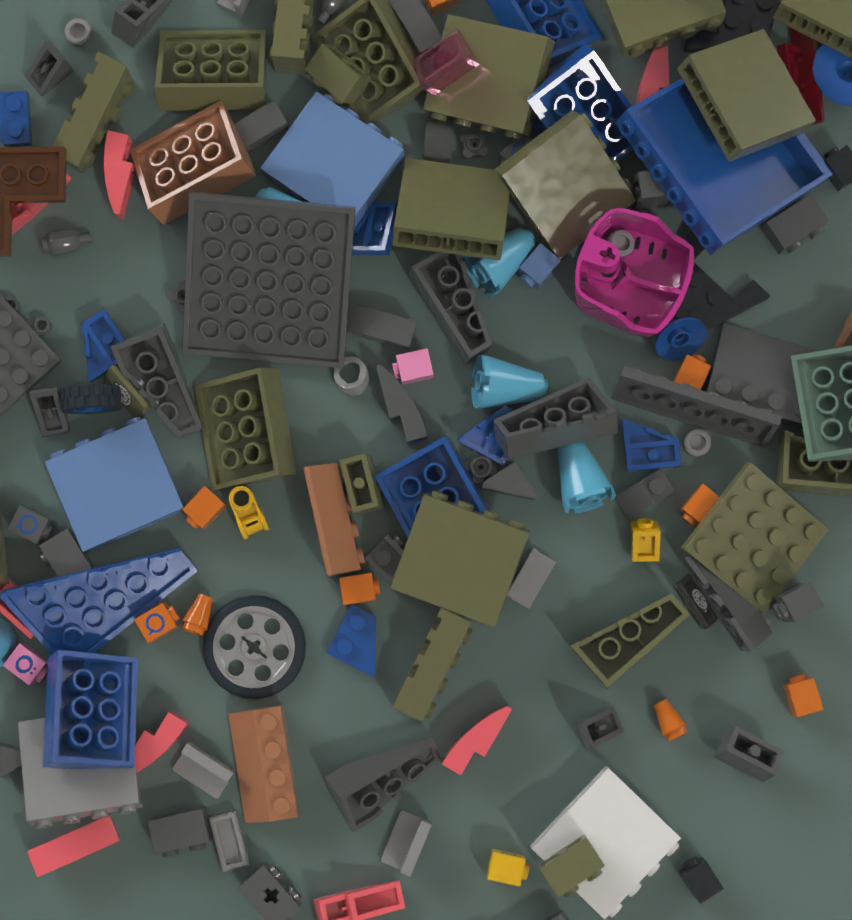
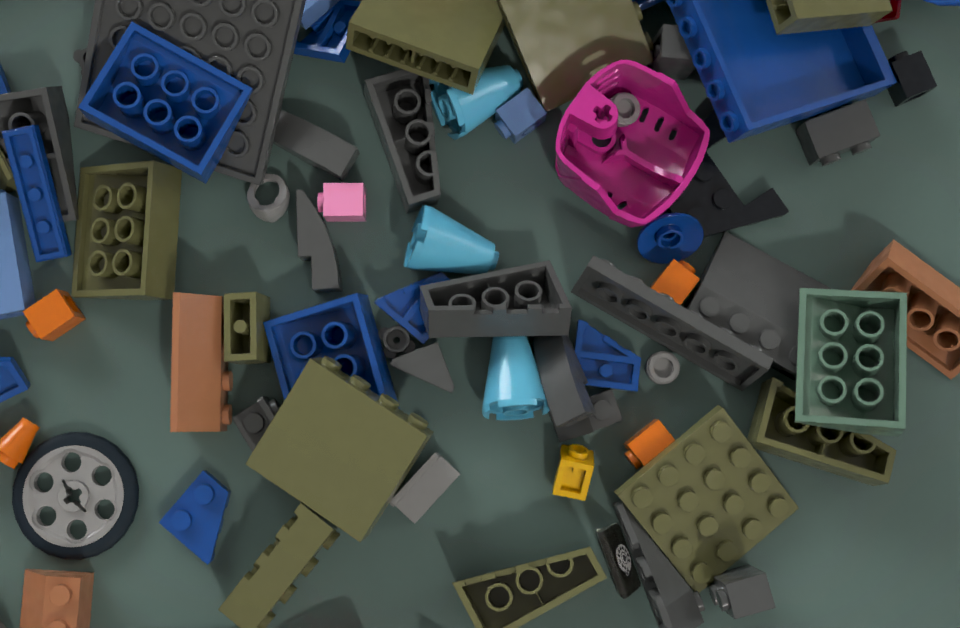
camera: 10 degrees right, 0 degrees up
(168, 413) = (36, 193): none -> blue tile
(248, 514) = (105, 333): yellow piece -> none
(260, 319) = (166, 102): none -> blue slope
(359, 588) = (215, 454): orange brick -> none
(620, 469) = (562, 380): none -> dark grey slope

